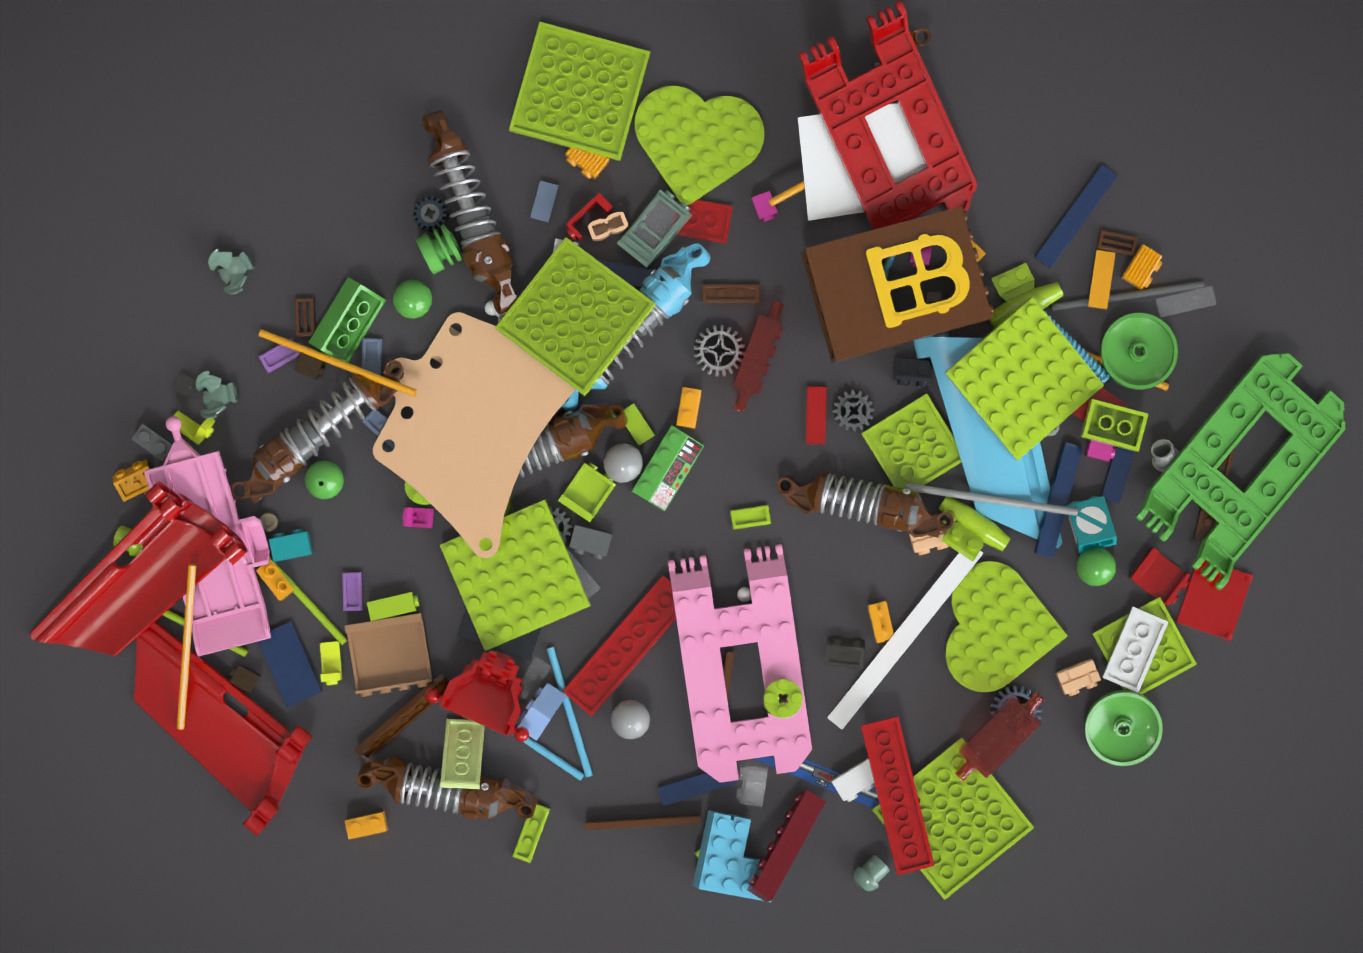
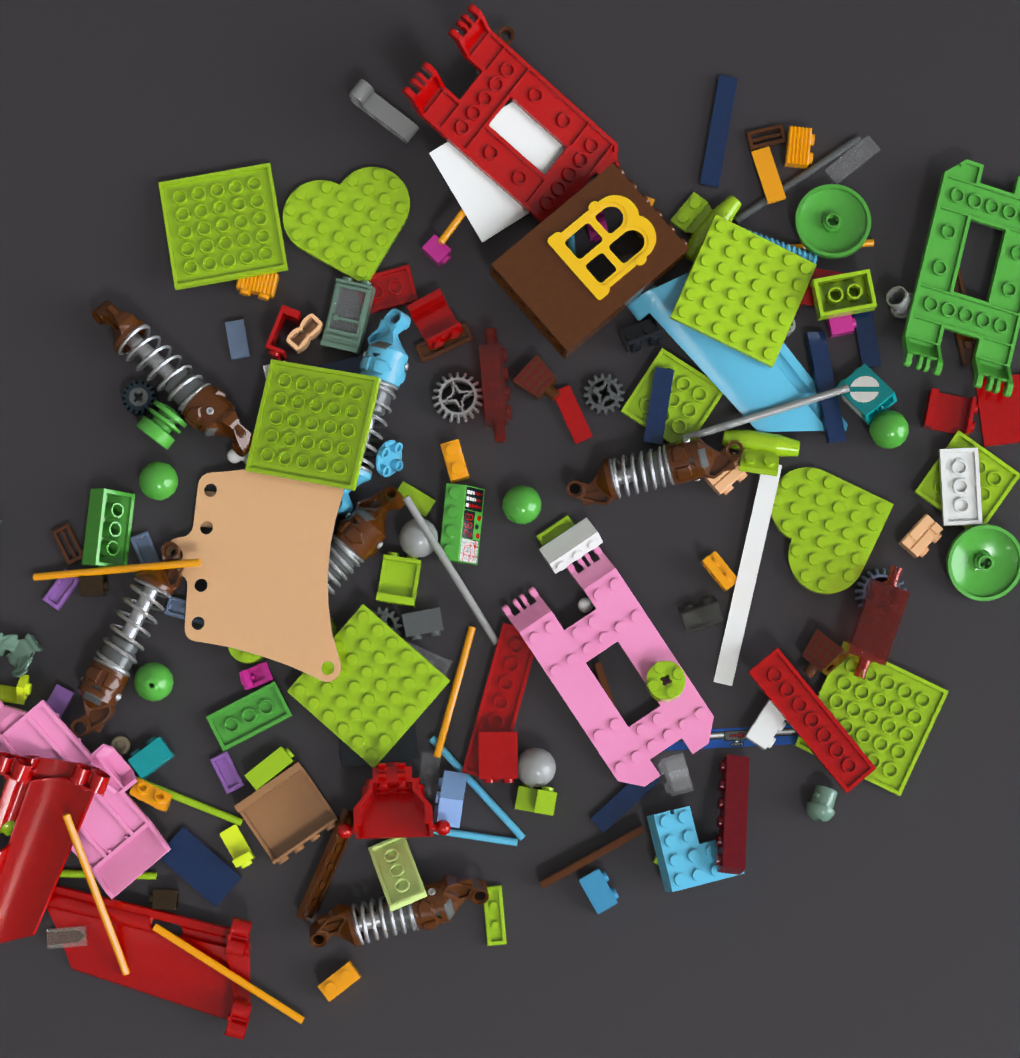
camera: 25 degrees left, 5 degrees down
(142, 670) = (66, 937): none -> clear tile
(233, 455) = (60, 699): none -> medium lavender tile
(271, 772) = (228, 973): none -> light orange piece
(395, 550) = (249, 716): none -> bright green plate
(588, 618) = (454, 692): none -> light orange piece
(601, 694) = (498, 756): none -> red panel
(616, 748) = (536, 800): none -> lime brick
(630, 377) = (389, 458): none -> medium azure dish
(633, 855) = (598, 891): none -> dark azure brick
(638, 506) = (451, 570): none -> light grey piece
(730, 476) = (521, 504): none -> bright green piece
(732, 269) = (434, 319): none -> red panel
(757, 535) = (571, 545): none -> white brick
(776, 53) = (380, 110): none -> light grey beam
(798, 369) = (537, 380): none -> reddish brown torso
(897, 445) = (658, 406): none -> dark blue tile
(936, 741) = (822, 655): none -> reddish brown torso

